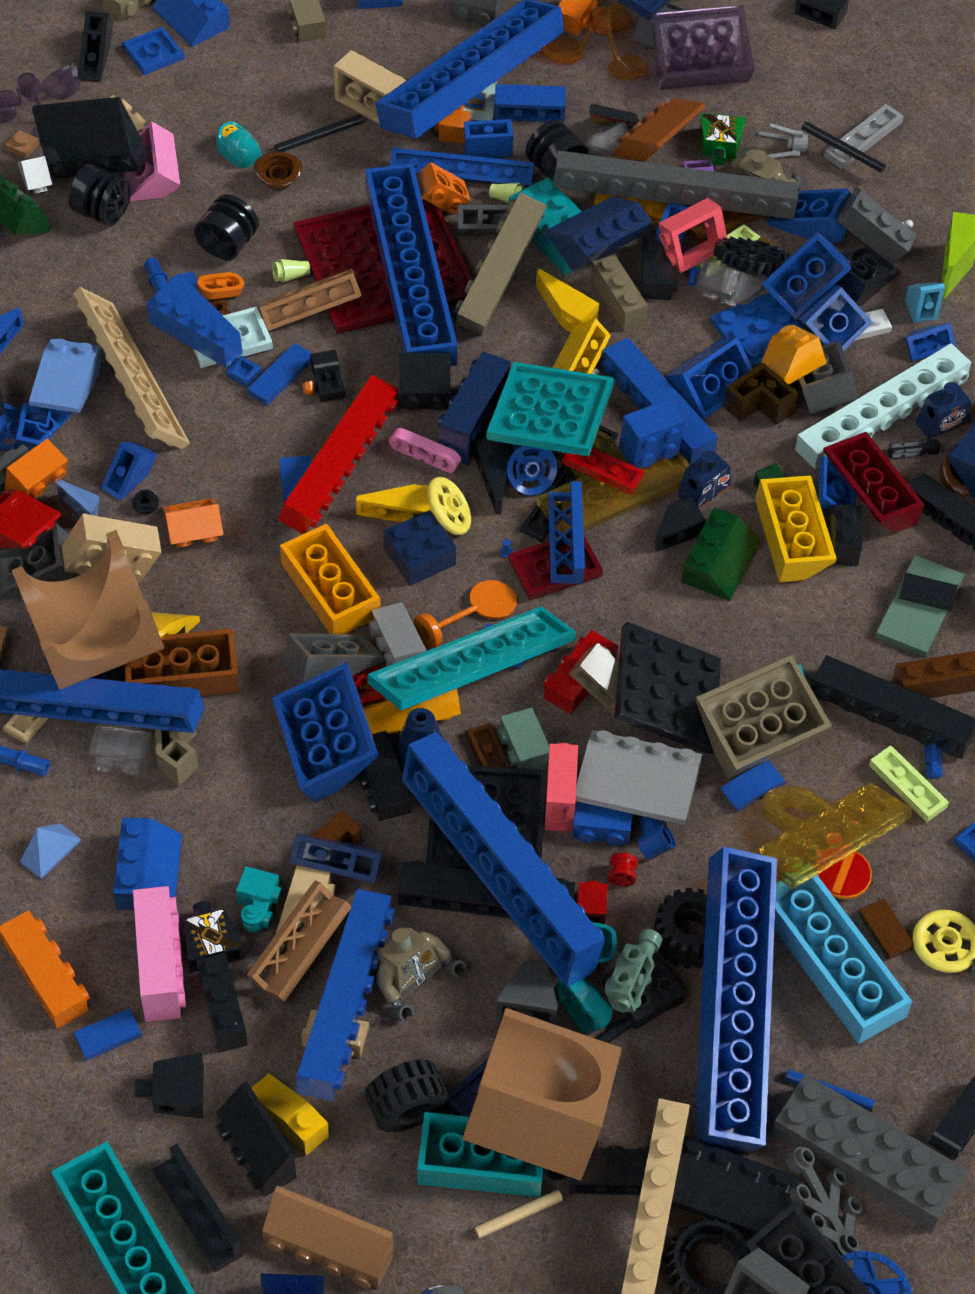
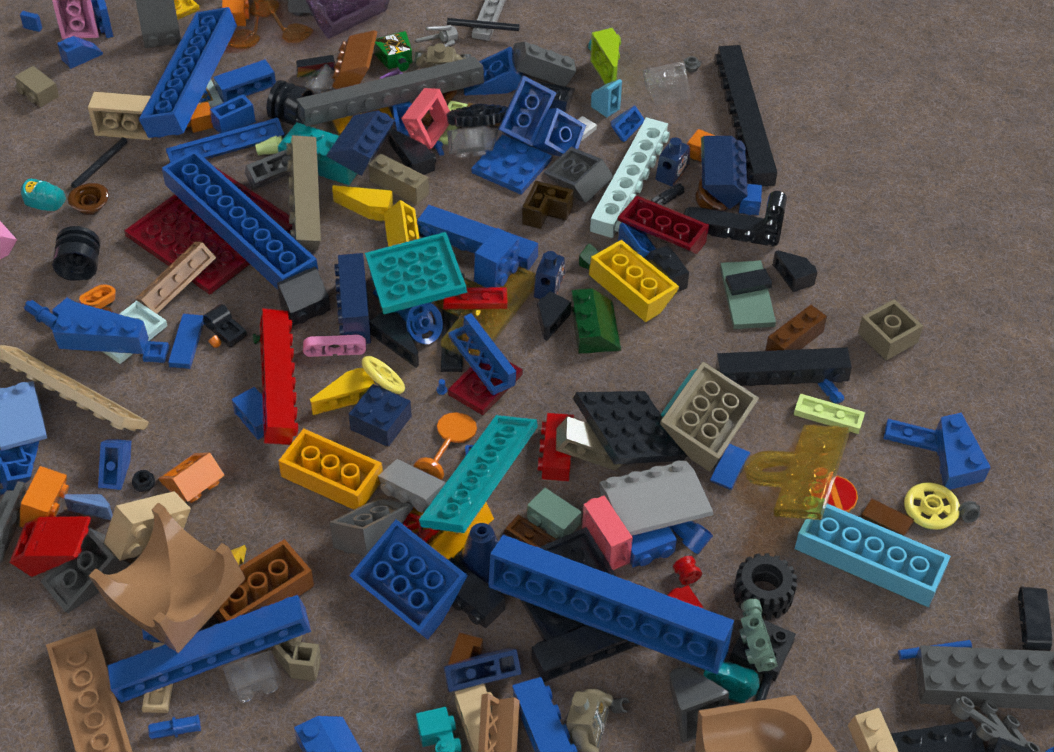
camera: 30 degrees left, 5 degrees down
(288, 270) = (142, 265): yellowish green cone -> none
(442, 188) = (225, 160): orange brick -> none
(707, 374) = (502, 204): blue slope -> none
(736, 1001) = (841, 617): blue brick -> none
(793, 353) = (550, 165): light orange slope -> none

